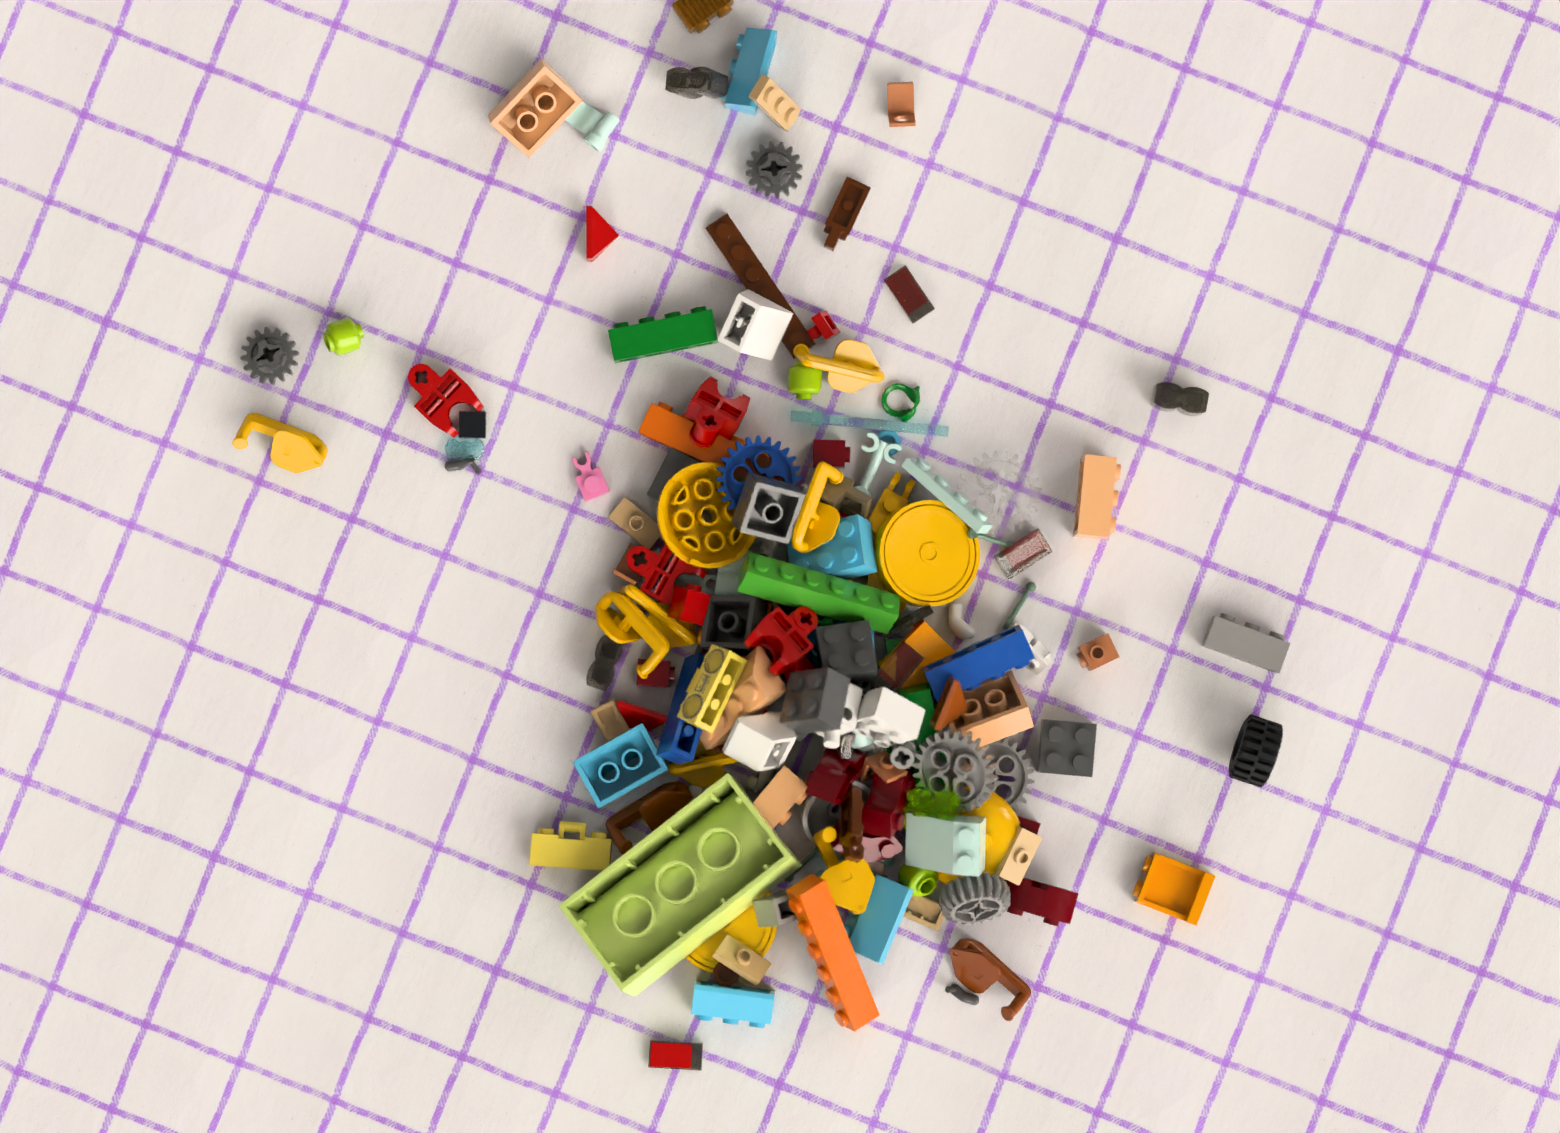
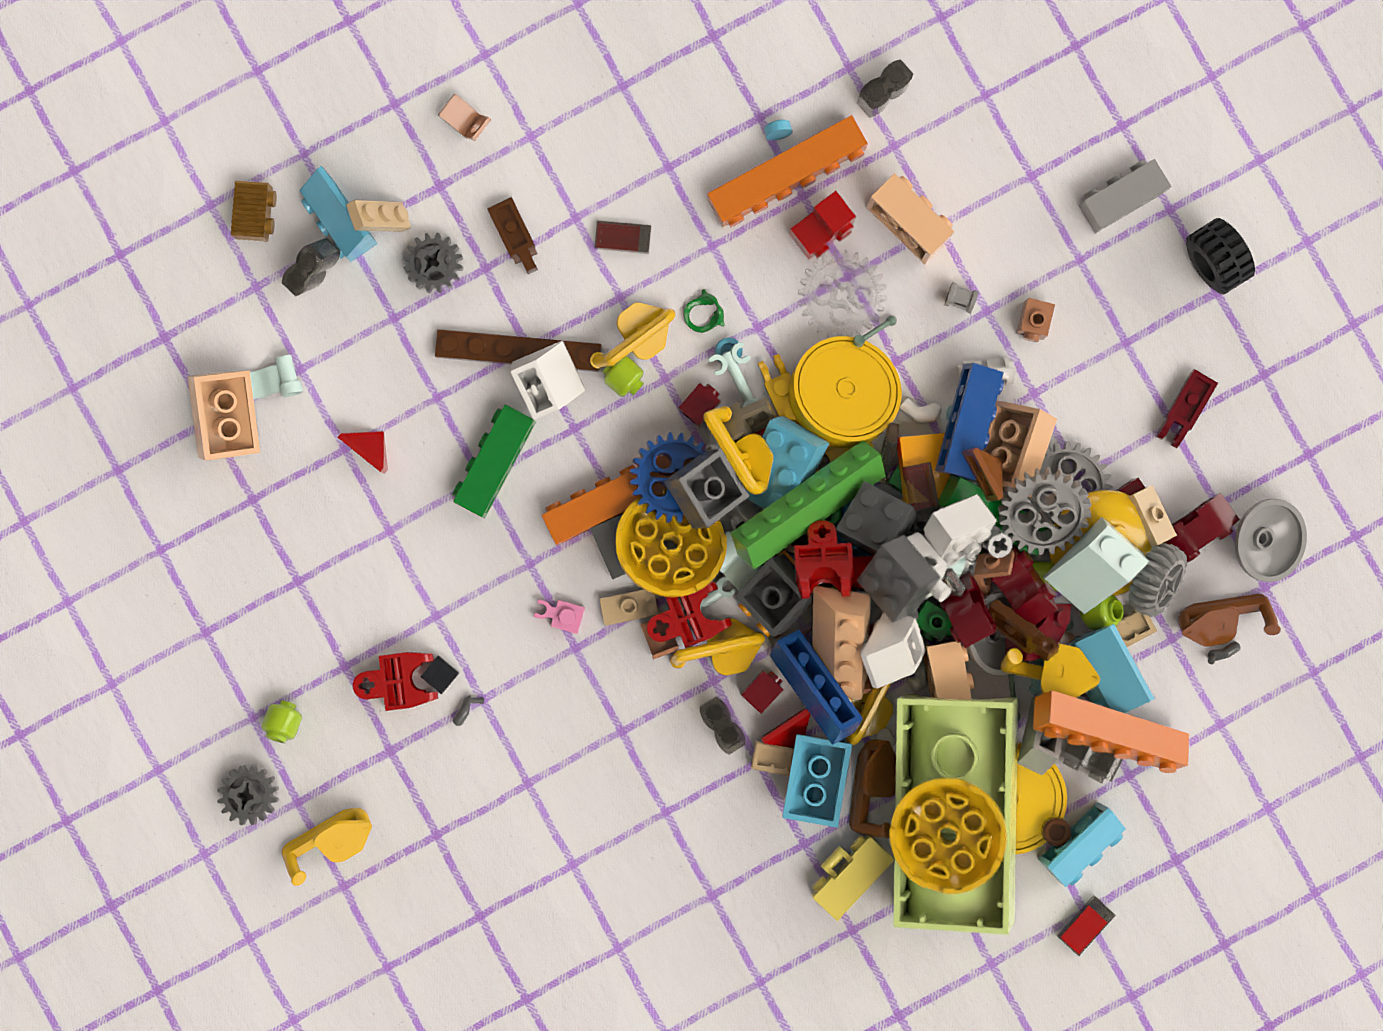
camera: 50 degrees left, 0 degrees up
(464, 449) = (454, 697): clear light blue piece -> none
(630, 628) = (709, 680): yellow piece -> none
(631, 883) = (943, 863): none -> yellow brick
(689, 604) = (731, 617): red brick -> none
(711, 688) = (817, 655): light yellow piece -> none
(714, 414) = (592, 471): red piece -> none
(742, 960) = (1056, 810): tan plate -> none
(803, 965) = (1100, 764): none -> clear smoke brick
(804, 749) = (926, 614): none -> green brick
(817, 418) = (663, 391): clear light blue bar -> none
(823, 327) = (593, 325): red tile -> none
(923, 805) = (1066, 544): clear neon green hinge -> none
(953, 500) = (822, 333): light aqua plate -> none
(1023, 554) = (907, 315): clear smoke tile -> none
(1030, 587) = (938, 331): sand green hinge -> none
(1037, 437) = (827, 222): none -> red brick
(1057, 377) = (787, 171): none -> orange brick
(1066, 748) = (1093, 407): dark grey brick -> none
(1069, 584) = (961, 297): none -> light grey bush
(1076, 972) = (1280, 542): none -> light grey dish
(1083, 344) = (778, 130): none -> medium azure tile
(1126, 819) = (1188, 406): none -> dark red hinge
(1173, 888) = (1275, 412): light orange panel -> none

